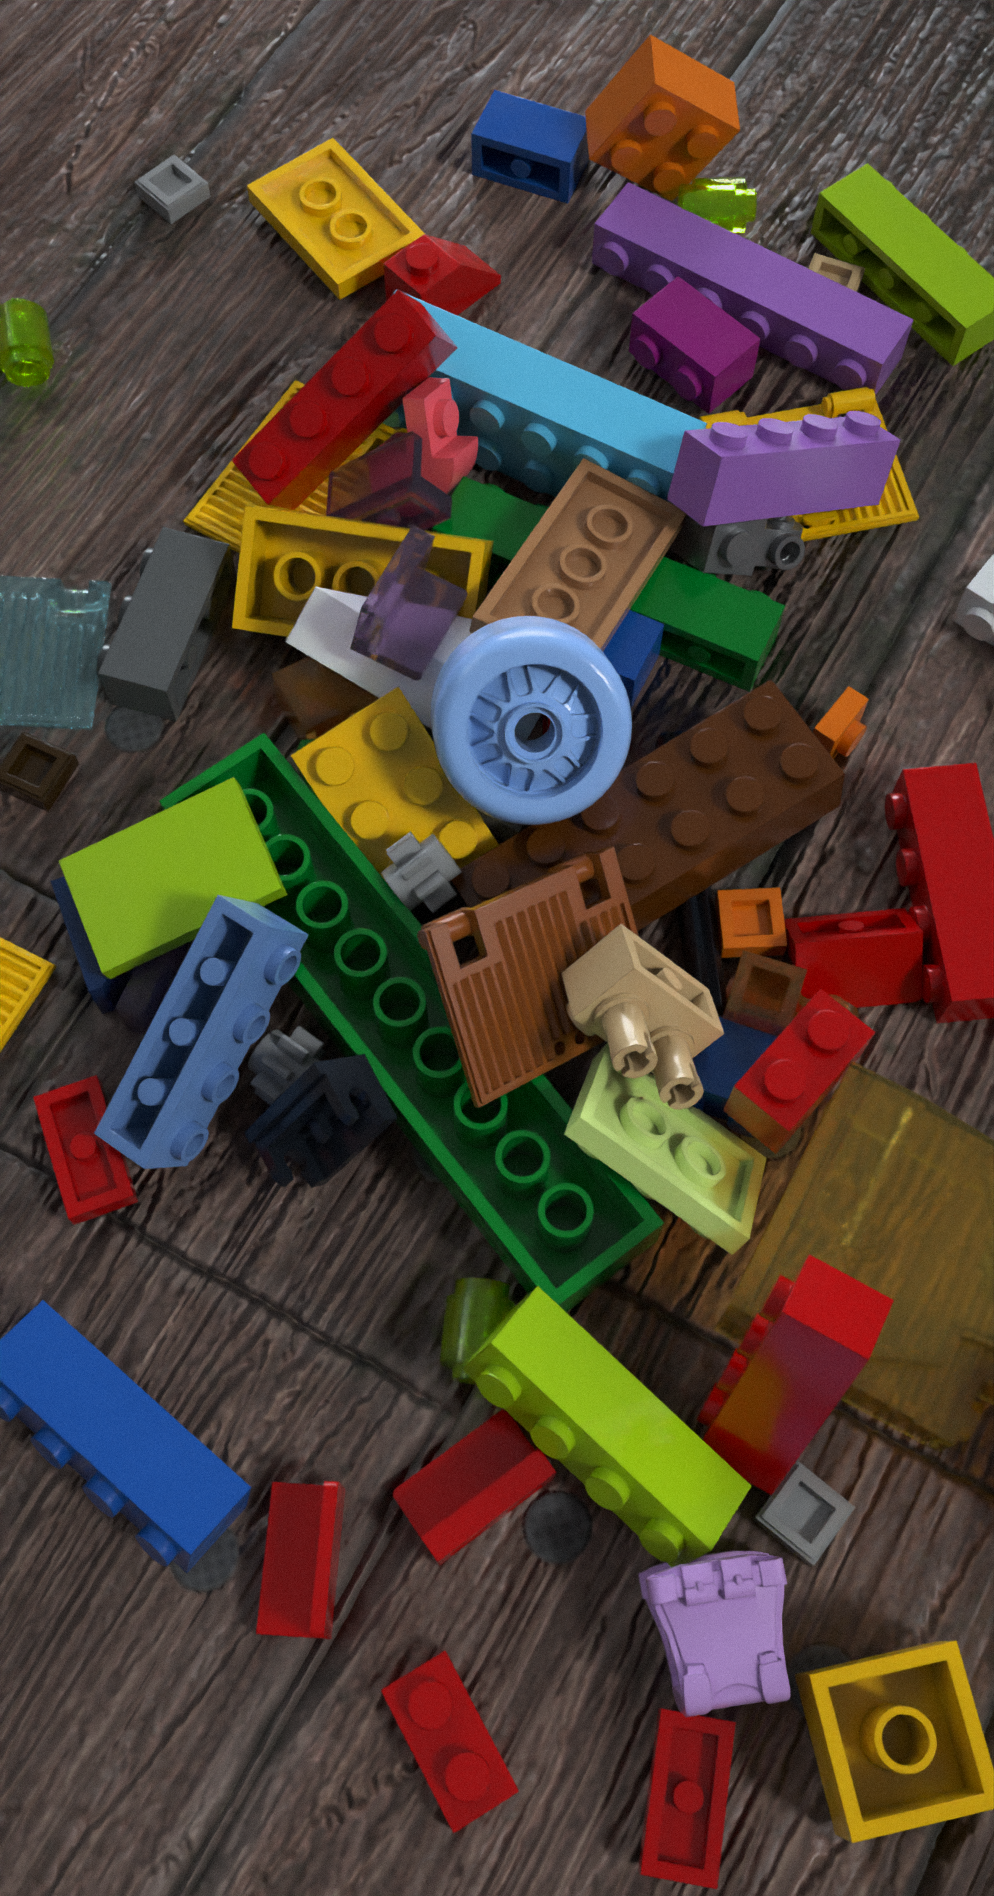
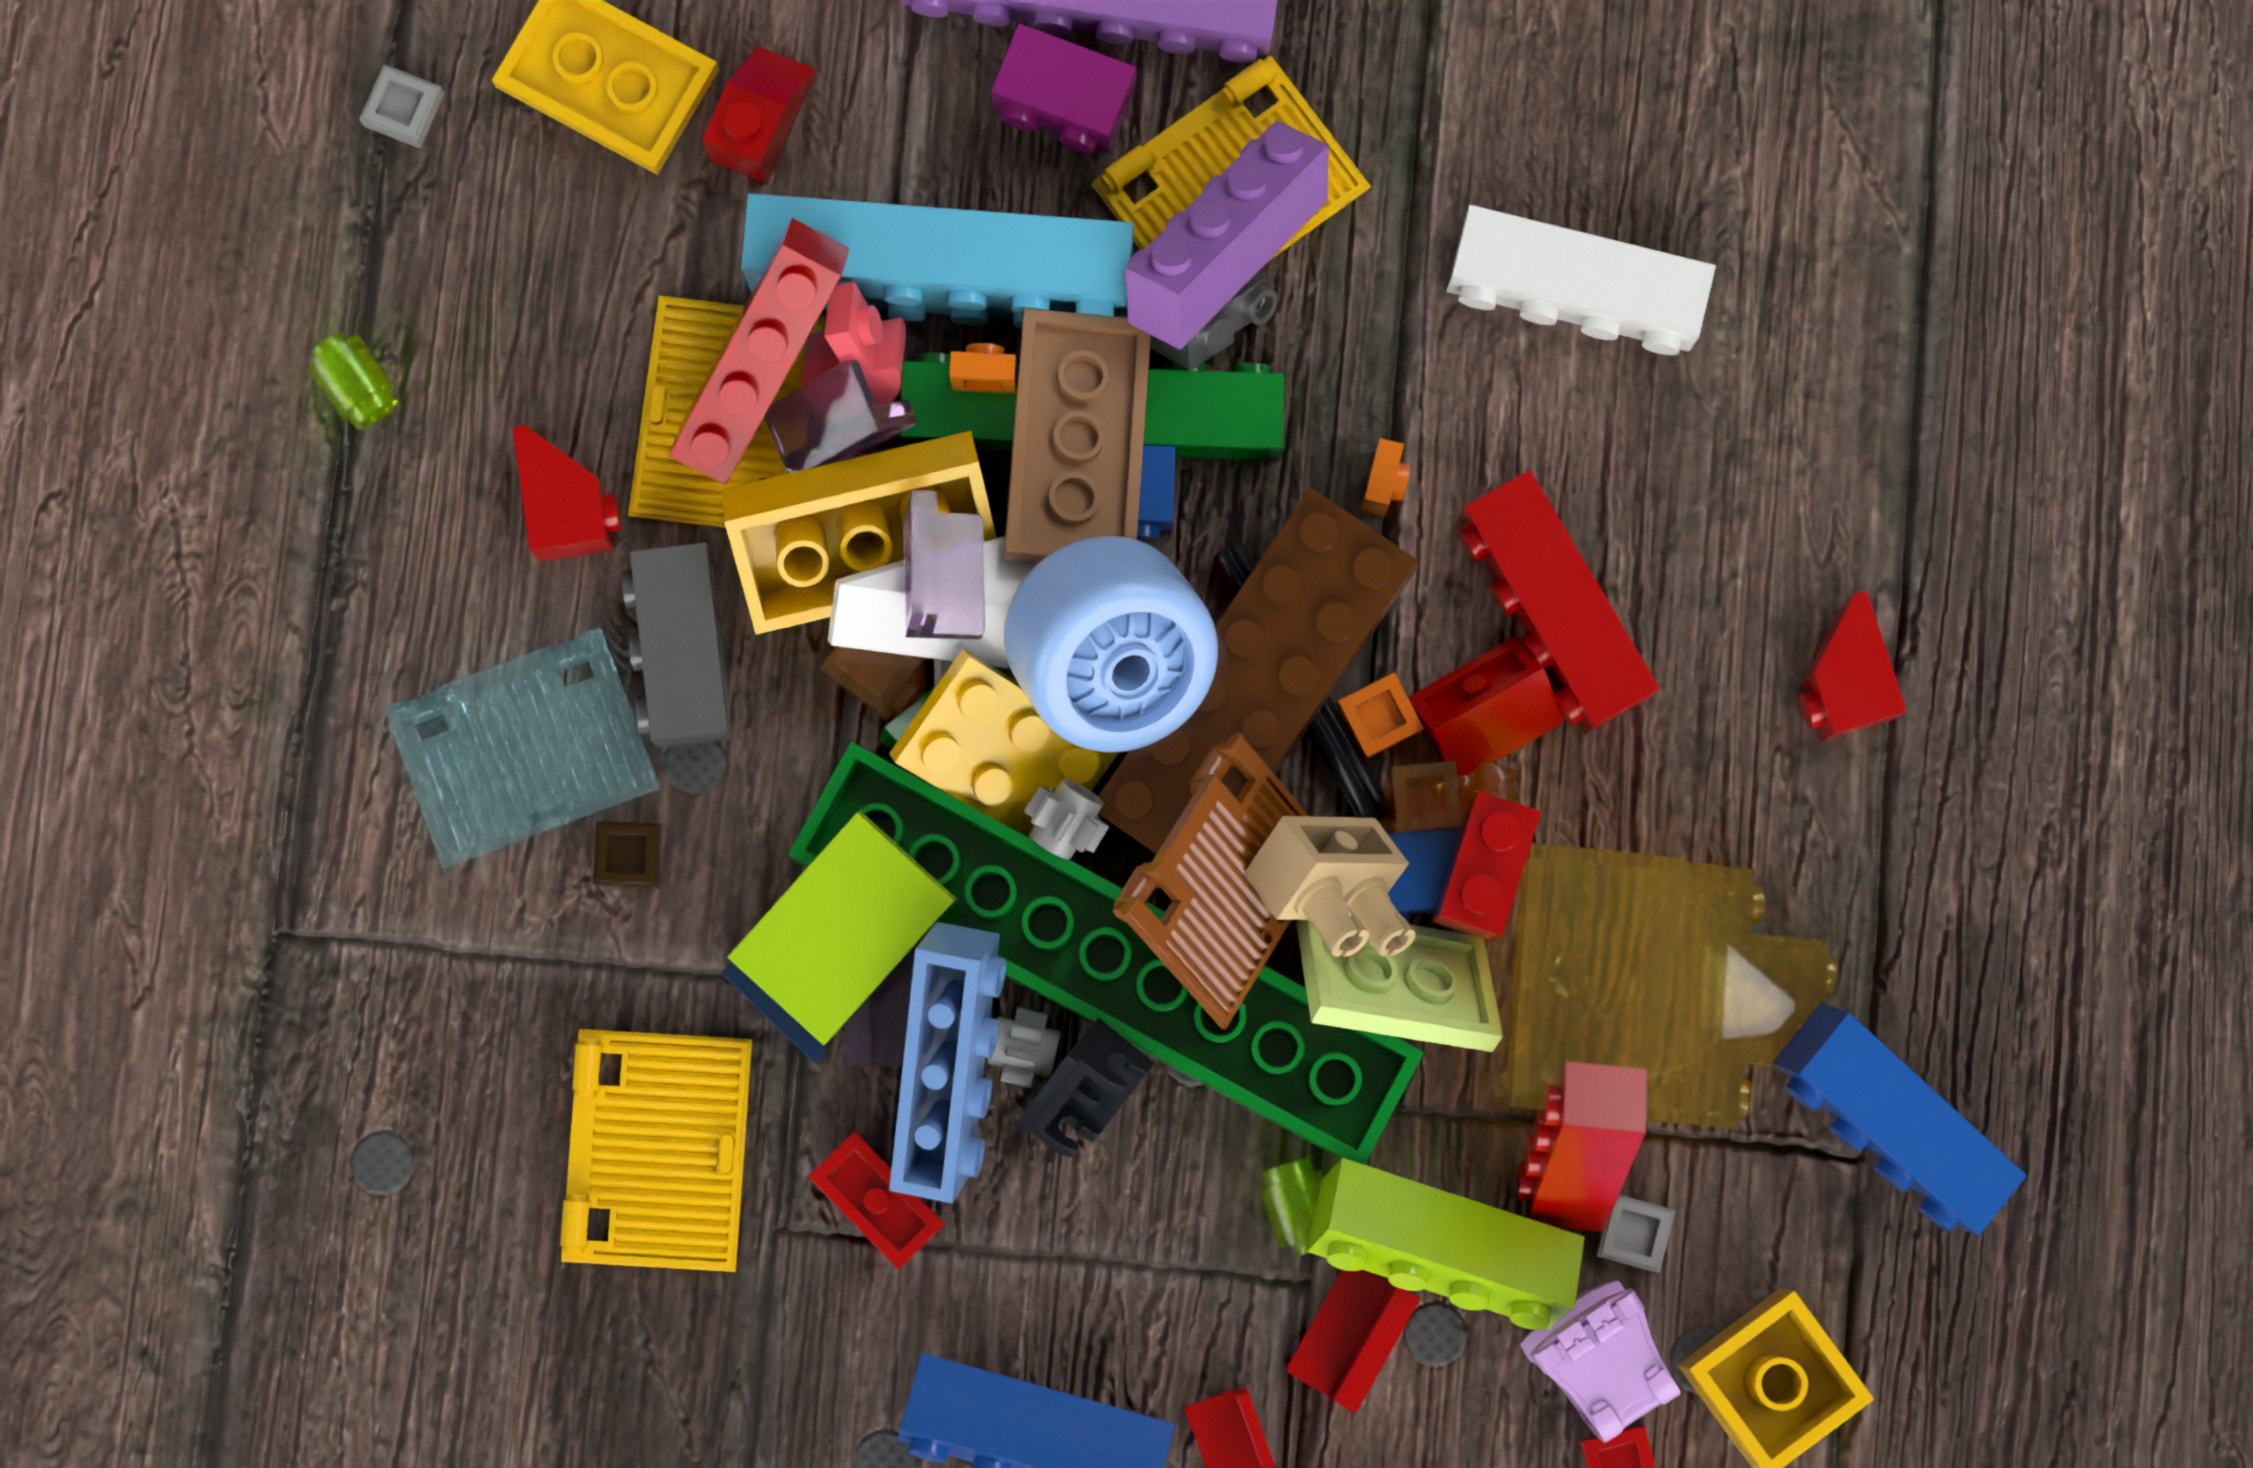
camera: 25 degrees left, 15 degrees up
(131, 483) = (562, 501): none -> red slope
(523, 492) = (983, 369): none -> orange plate

